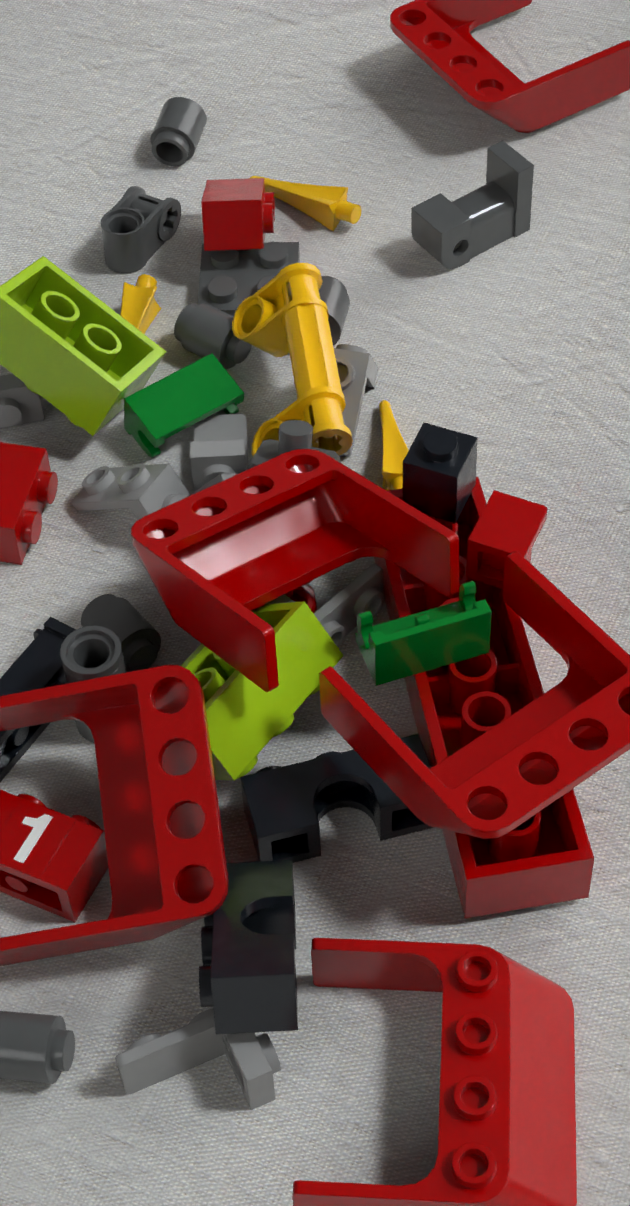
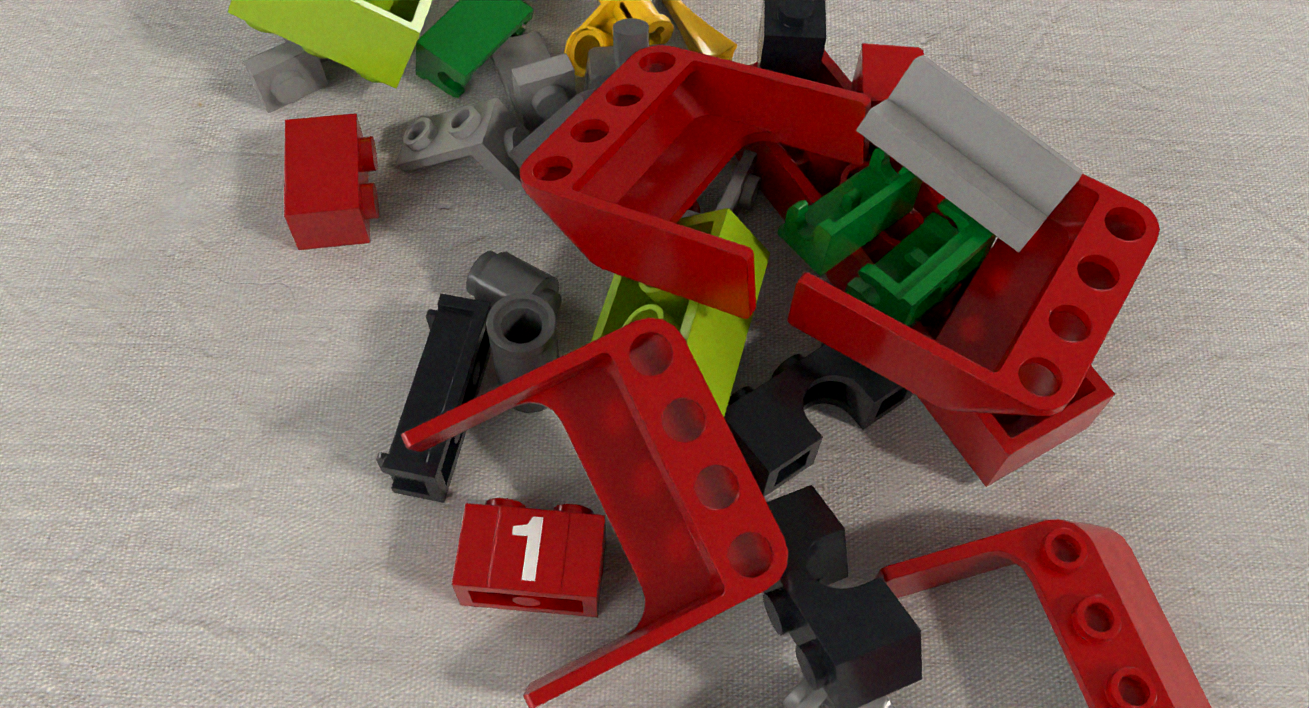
camera: 25 degrees left, 10 degrees up
(462, 704) = (924, 266): none -> green hinge
(527, 608) = (970, 152): none -> light grey panel

